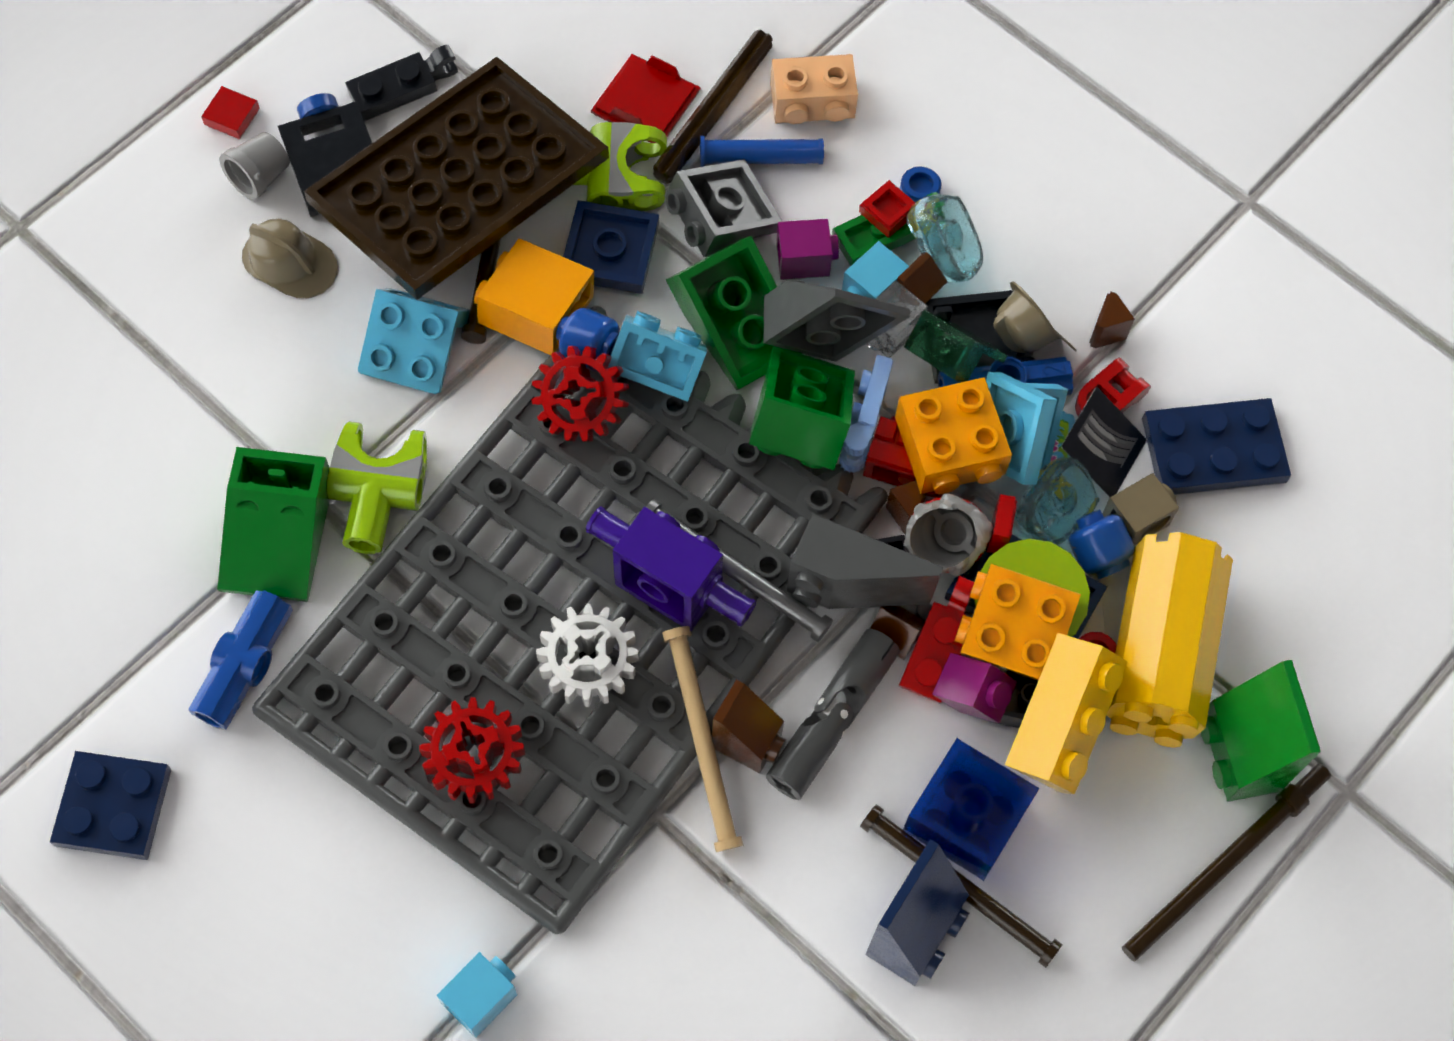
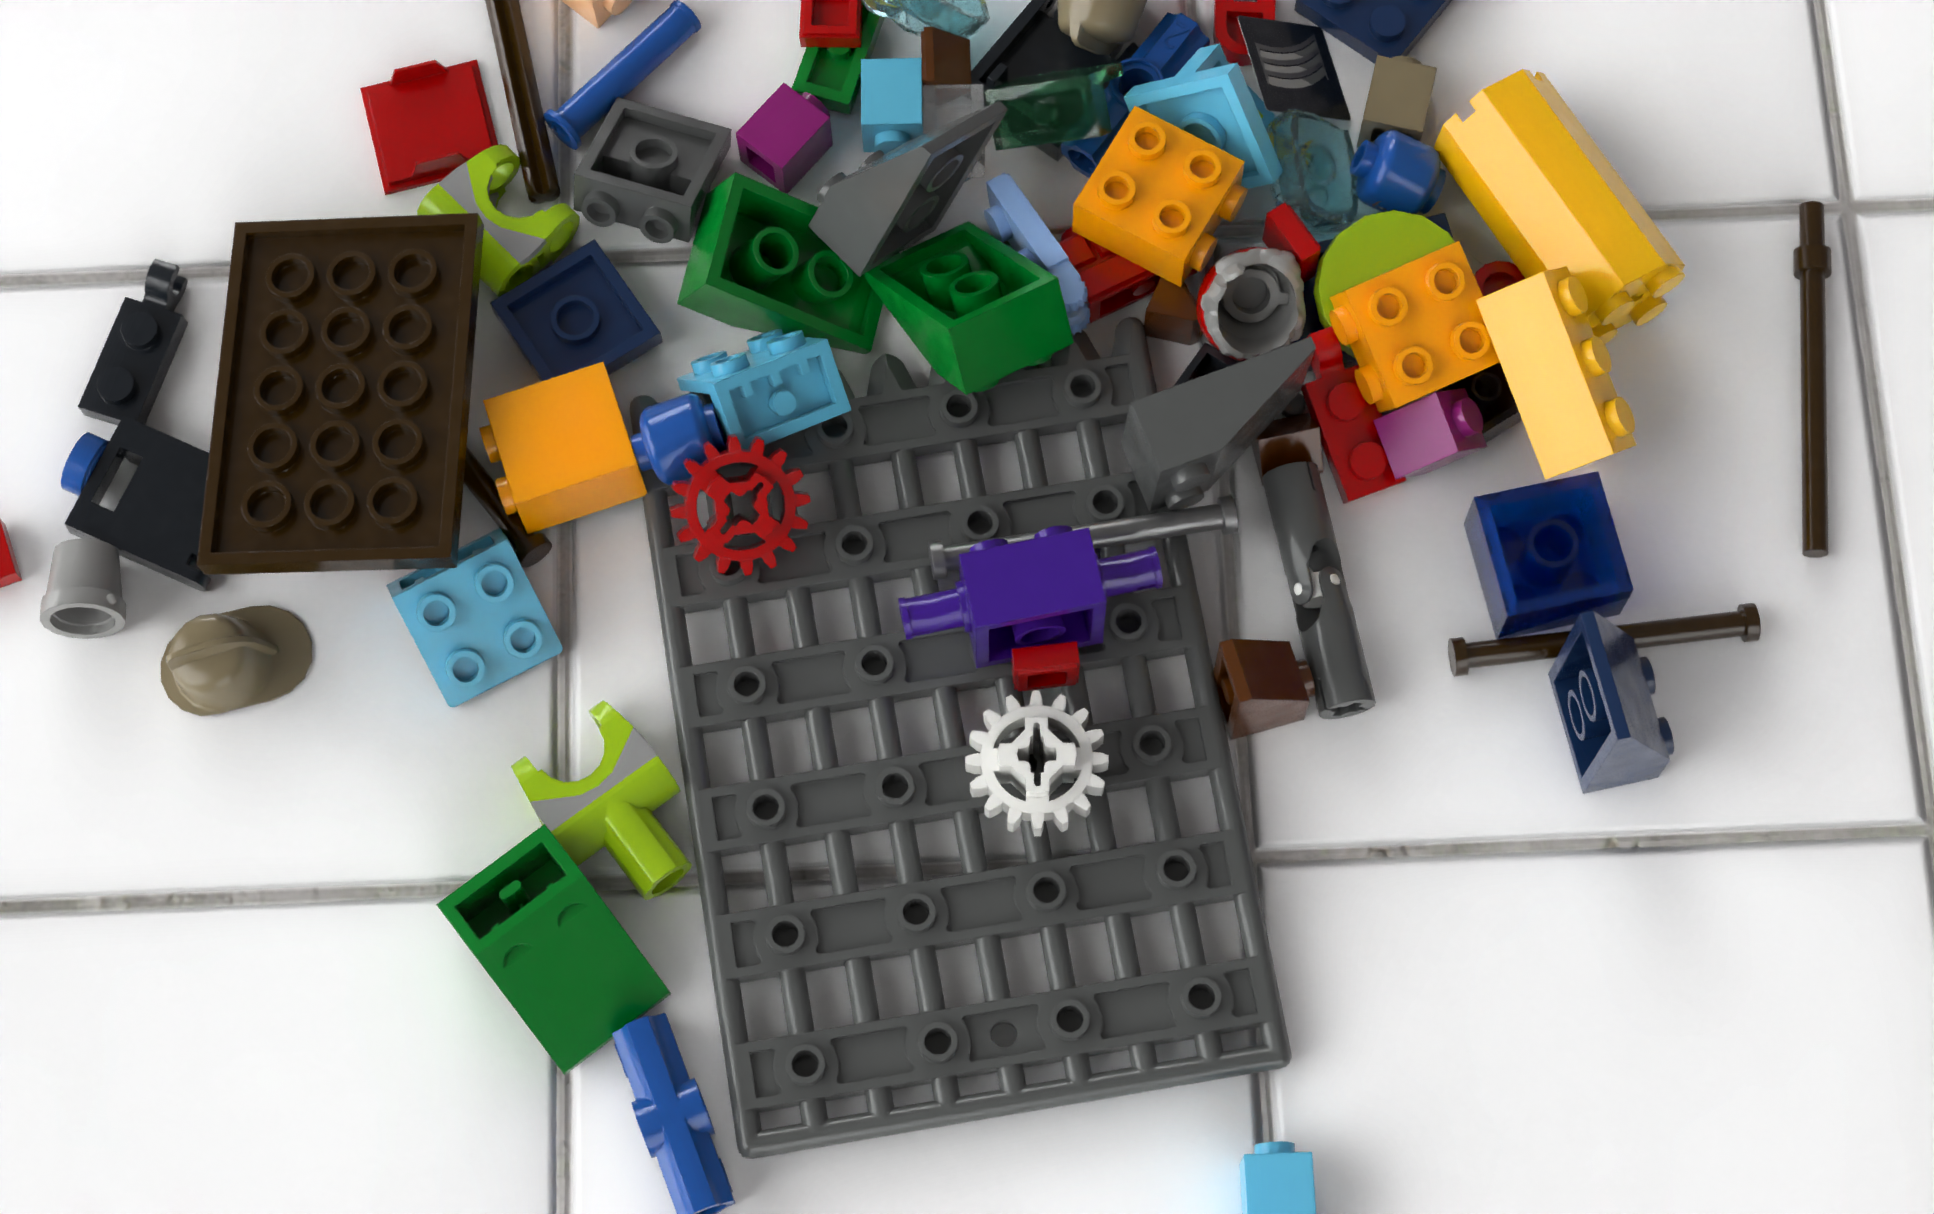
camera: 40 degrees left, 5 degrees up
(455, 758) = (1054, 976): red gear -> none
(644, 612) = (1045, 666): none -> red tile
(702, 738) = (1227, 737): tan bar -> none
(1260, 734) = (1742, 219): green slope -> none

